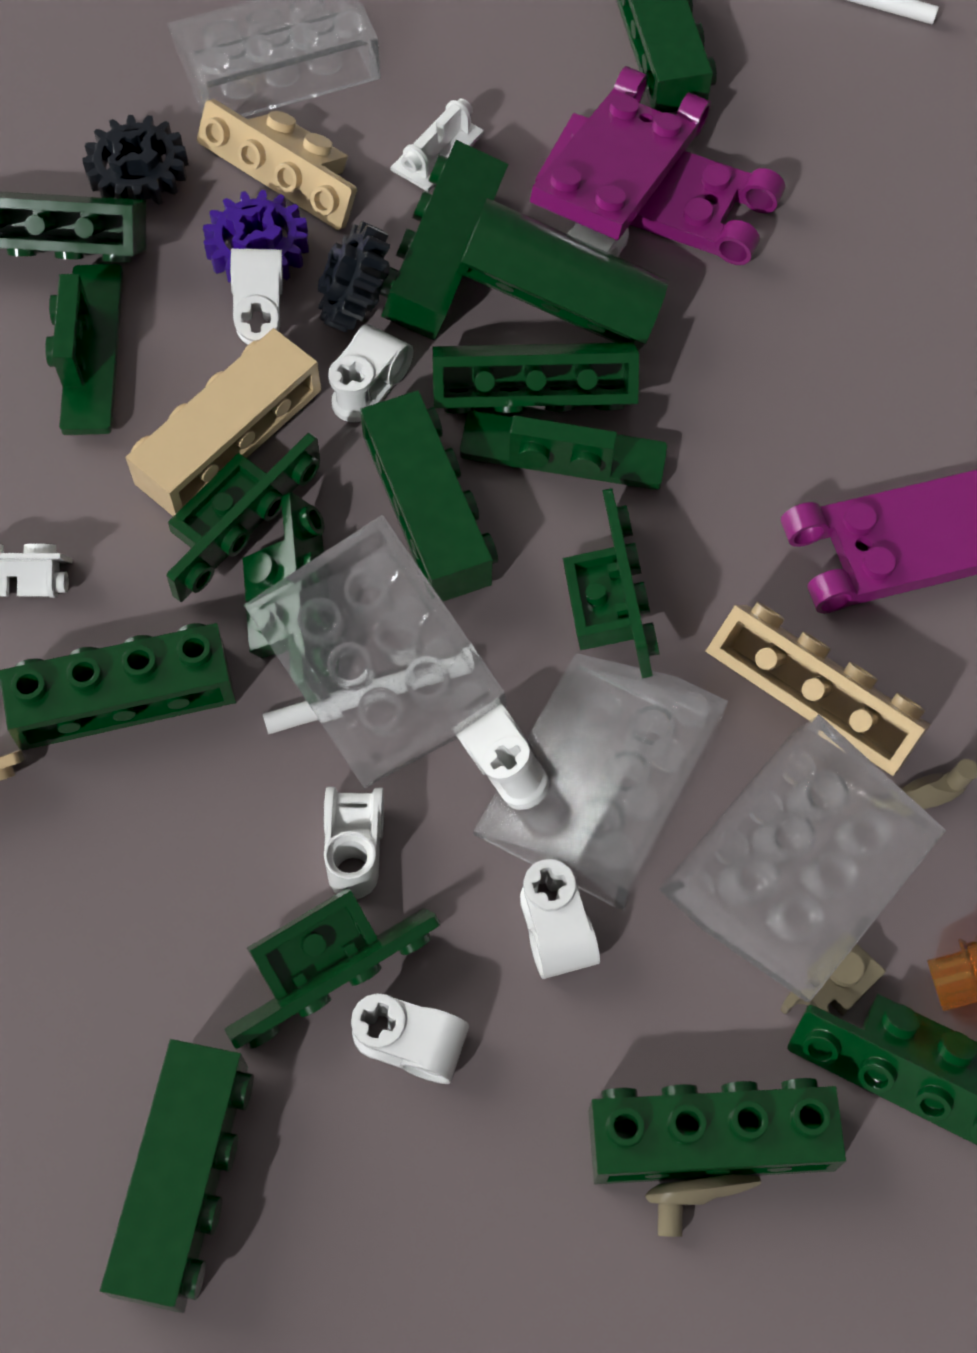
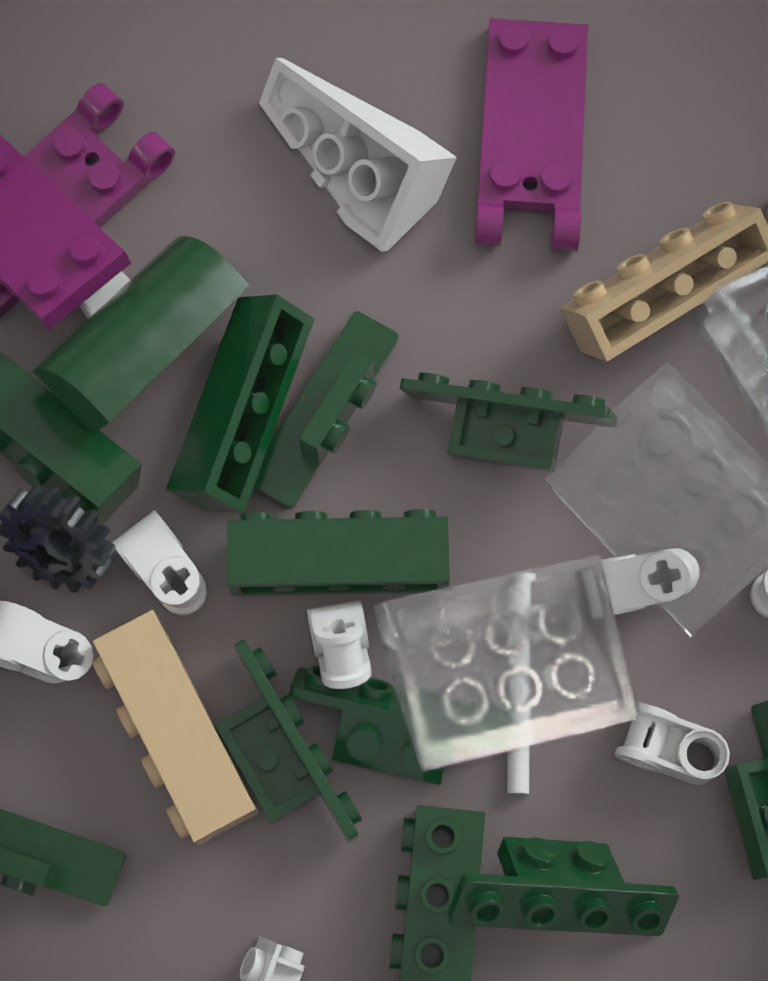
camera: 70 degrees left, 10 degrees up
(180, 771) = (561, 889): none -> dark green bracket
(339, 514) = (340, 643): none -> white piece
(822, 402) = (366, 159): none -> white wedge

